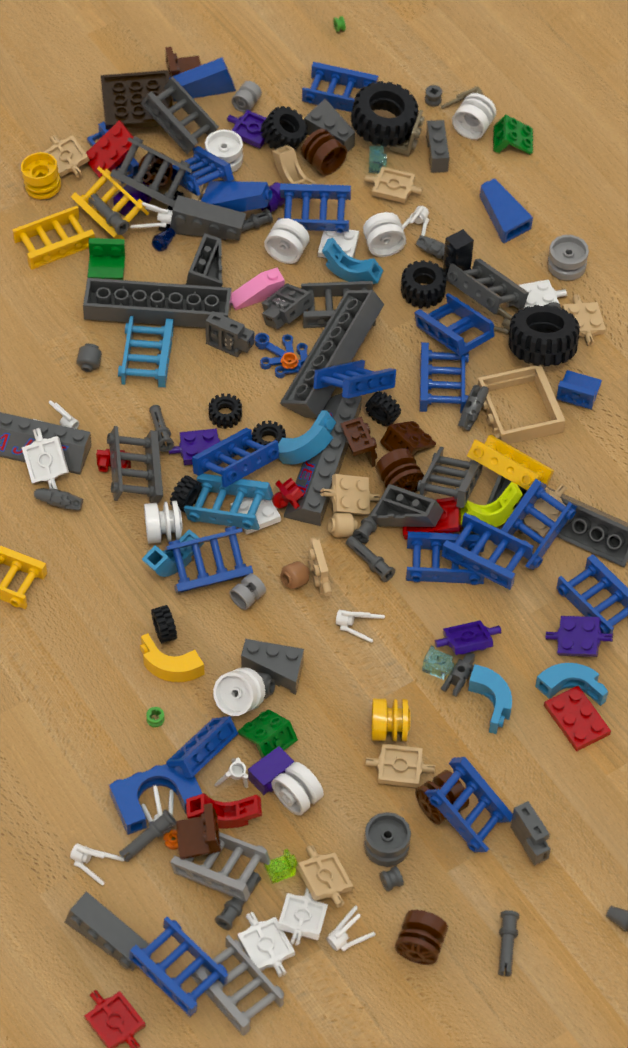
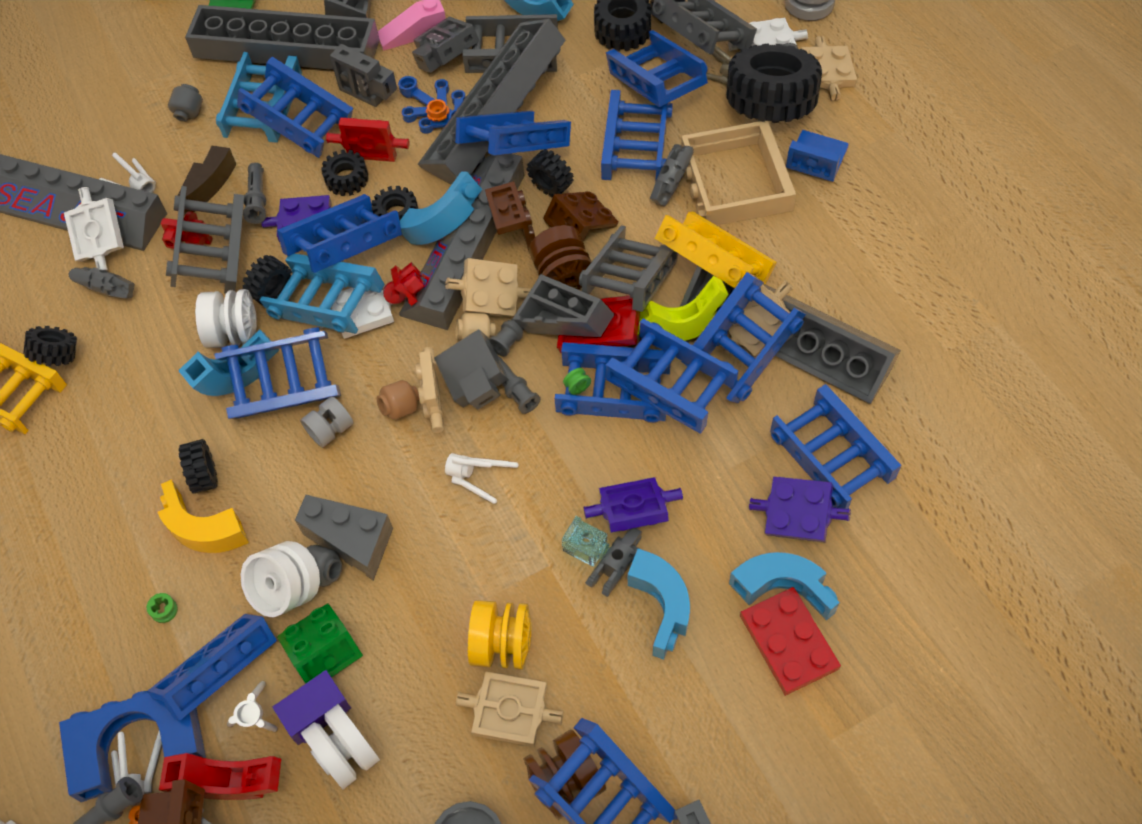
camera: 10 degrees right, 5 degrees up
(35, 545) = (50, 346): none -> black tyre
(121, 415) = (208, 178): none -> dark brown slope
(187, 348) = (302, 89): none -> blue fence
(242, 385) = (368, 138): none -> red plate
(346, 553) = (472, 370): none -> dark grey piece
(422, 557) = (577, 381): none -> bright green bush

